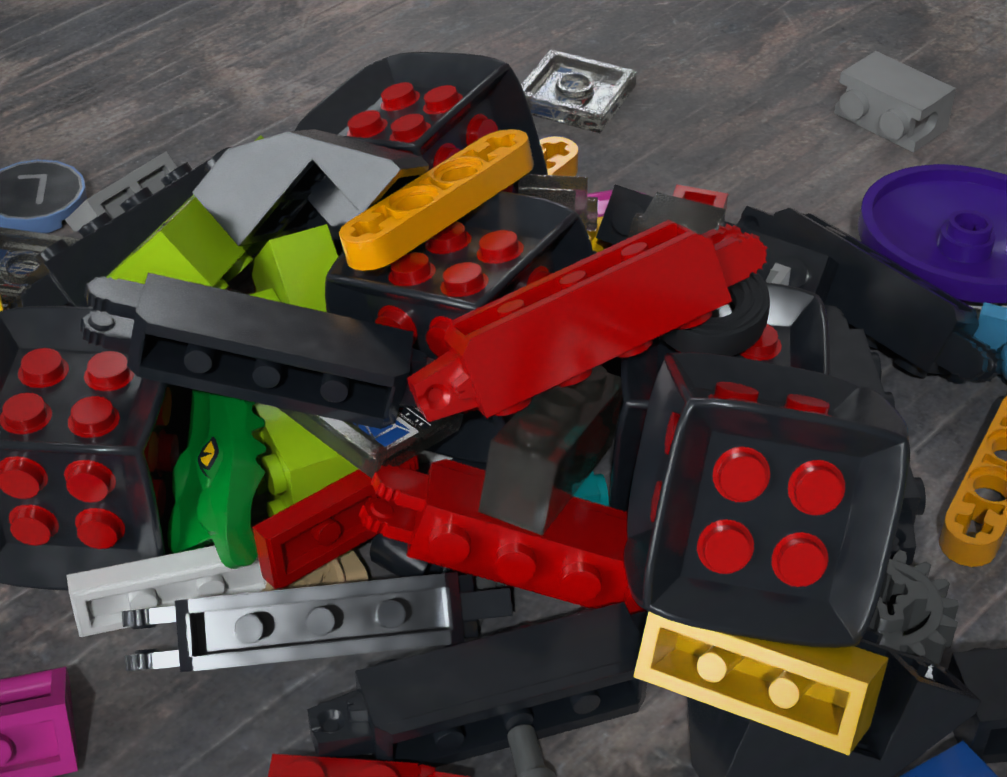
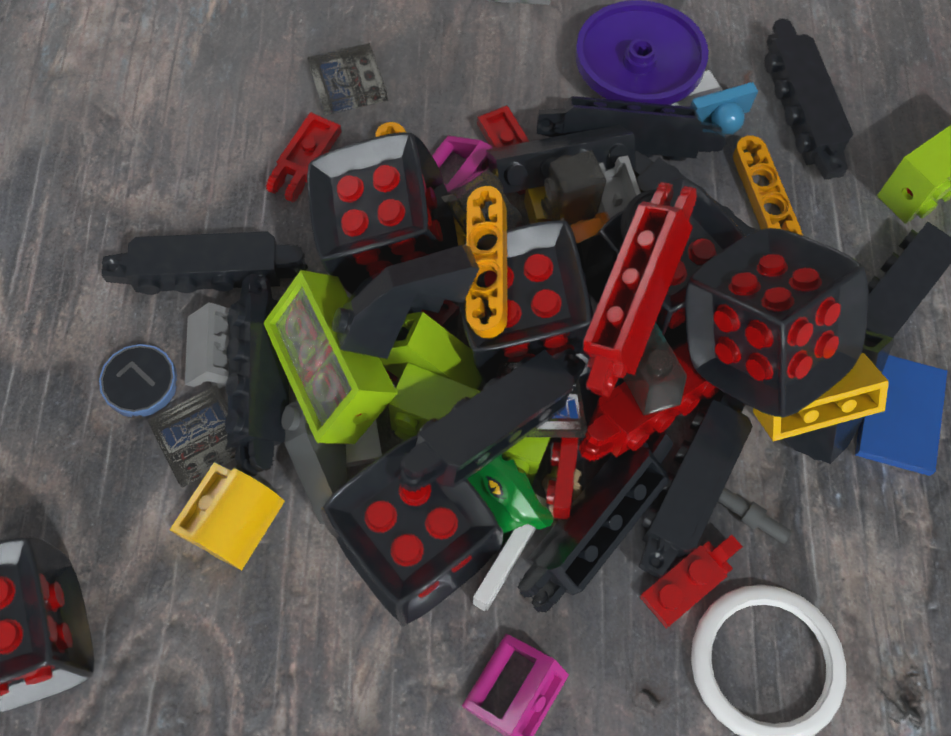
camera: 45 degrees left, 25 degrees up
(187, 119) = (202, 262): none -> black hinge

